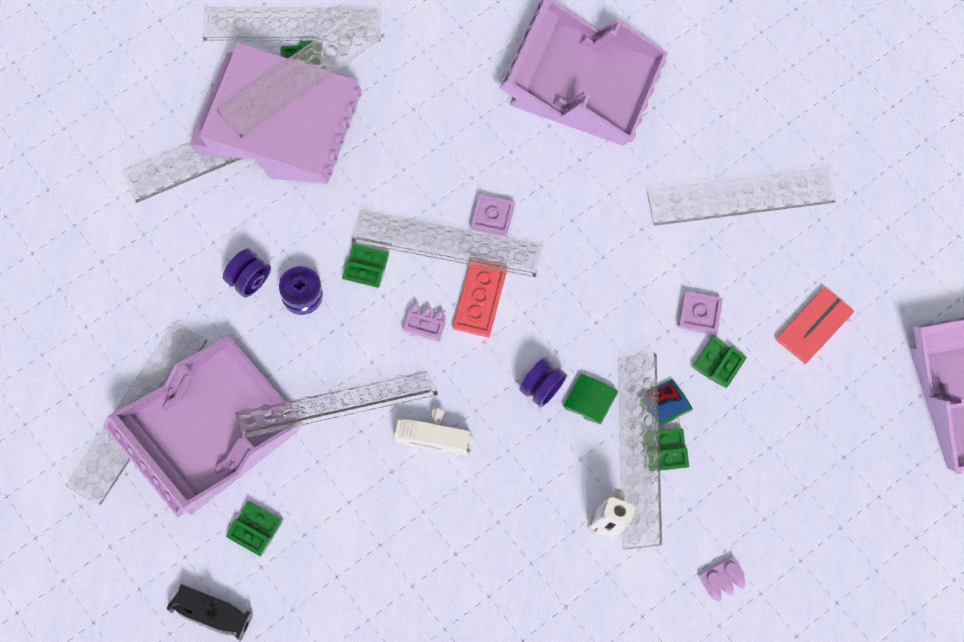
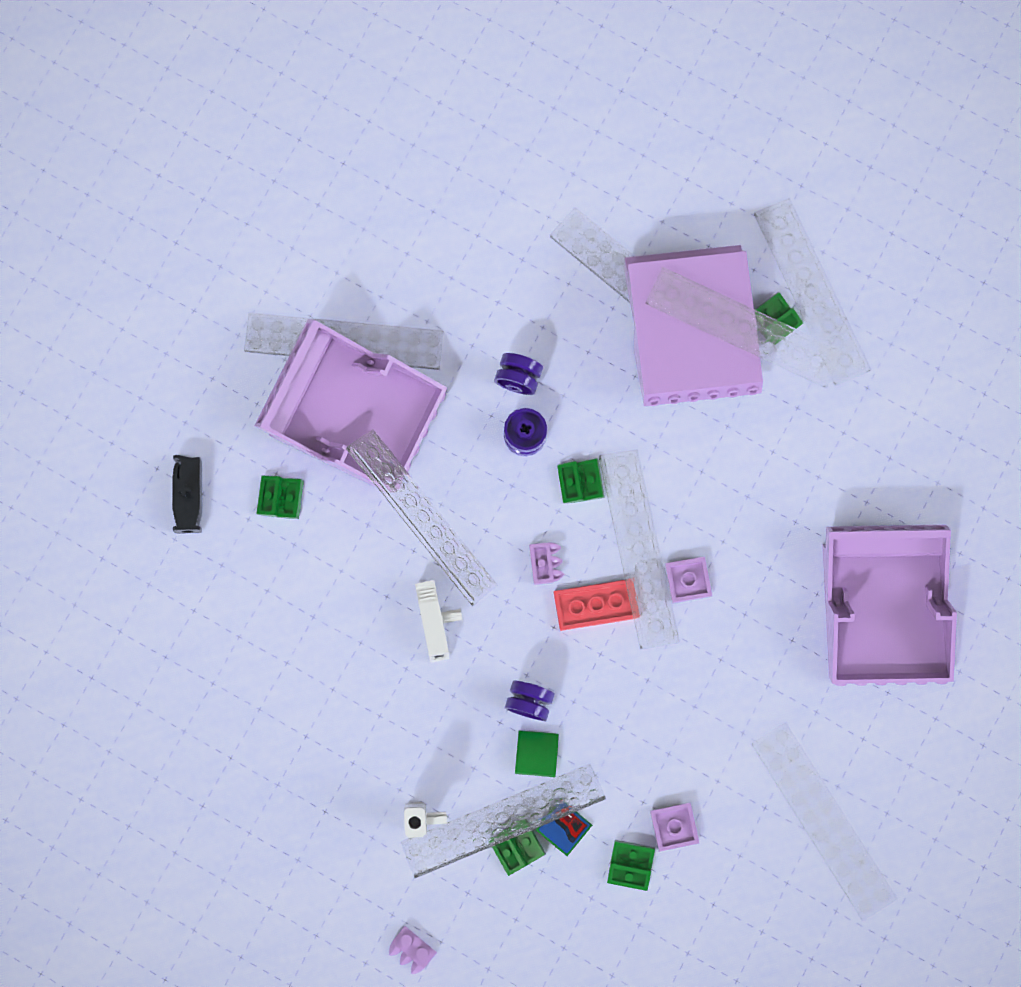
camera: 65 degrees right, 10 degrees up
(815, 325) = (713, 948): coral tile -> none

